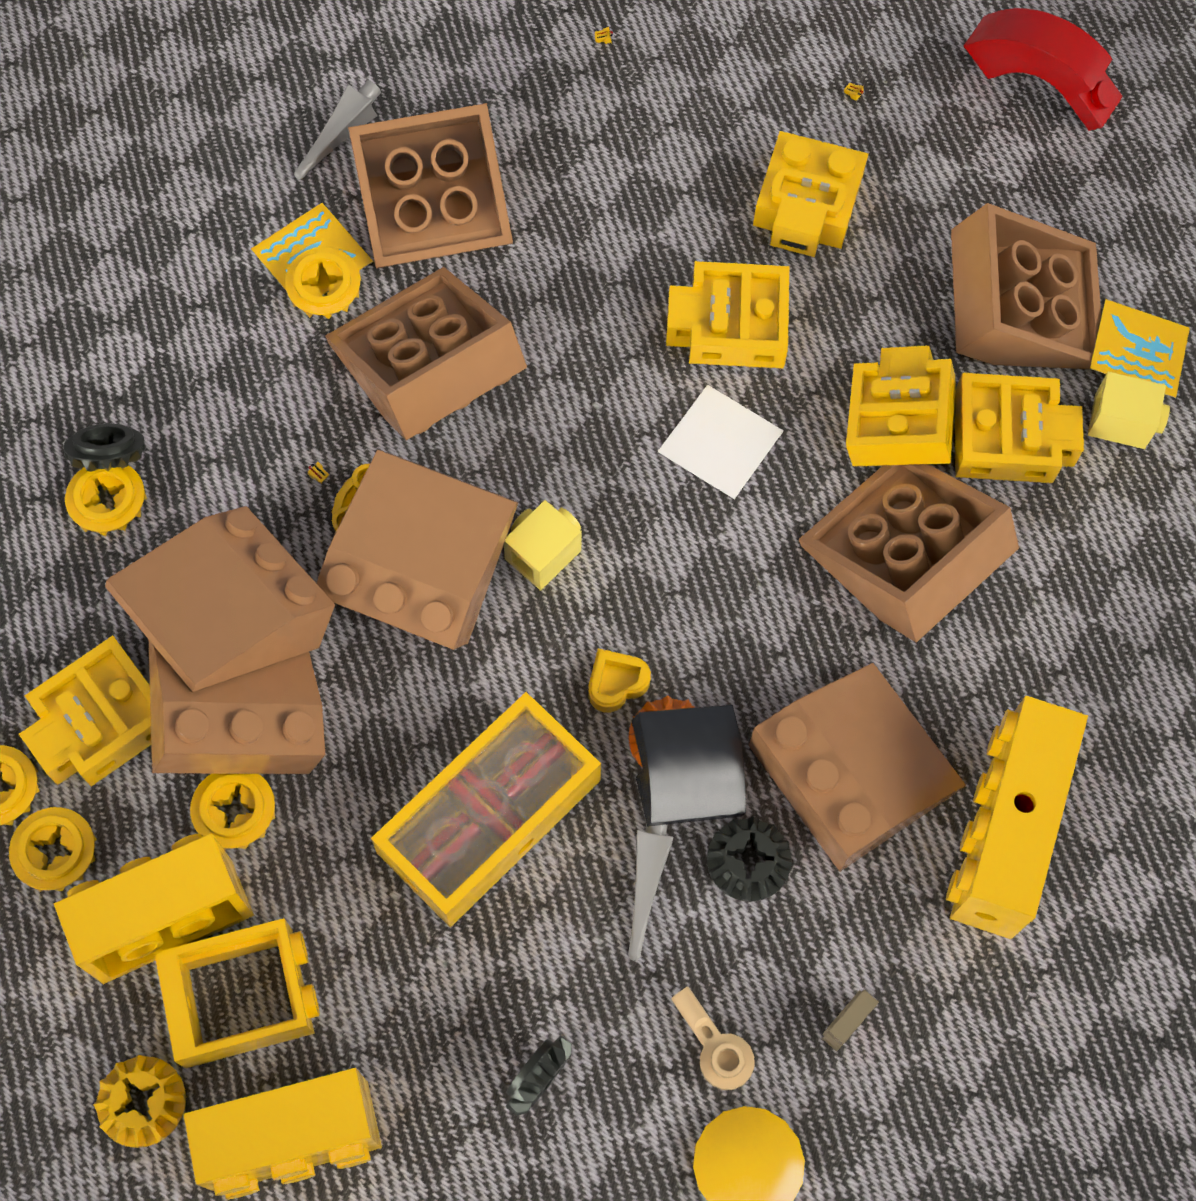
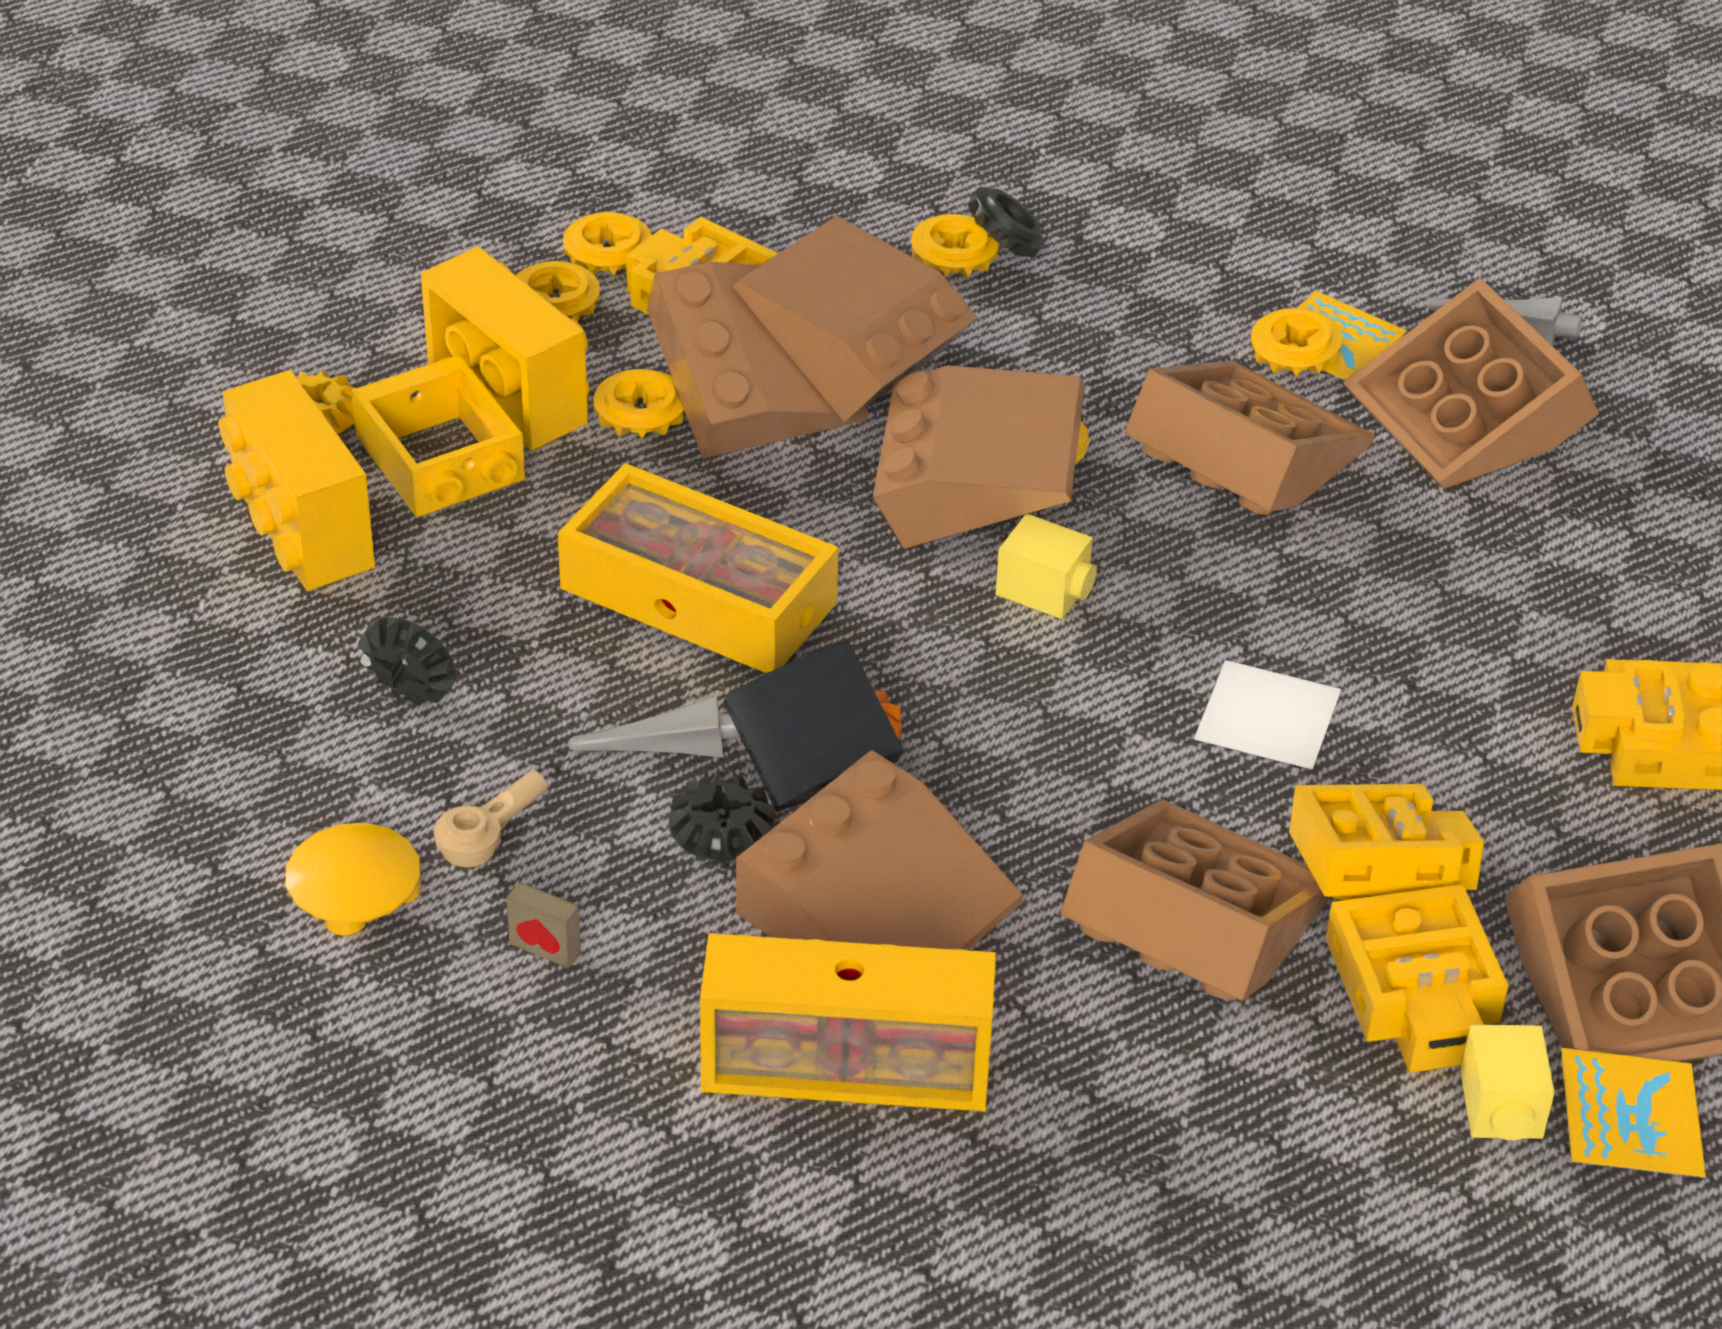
camera: 75 degrees right, 25 degrees down
(616, 679) = (904, 669): yellow tile -> none
(732, 315) = (1441, 675): yellow piece -> none

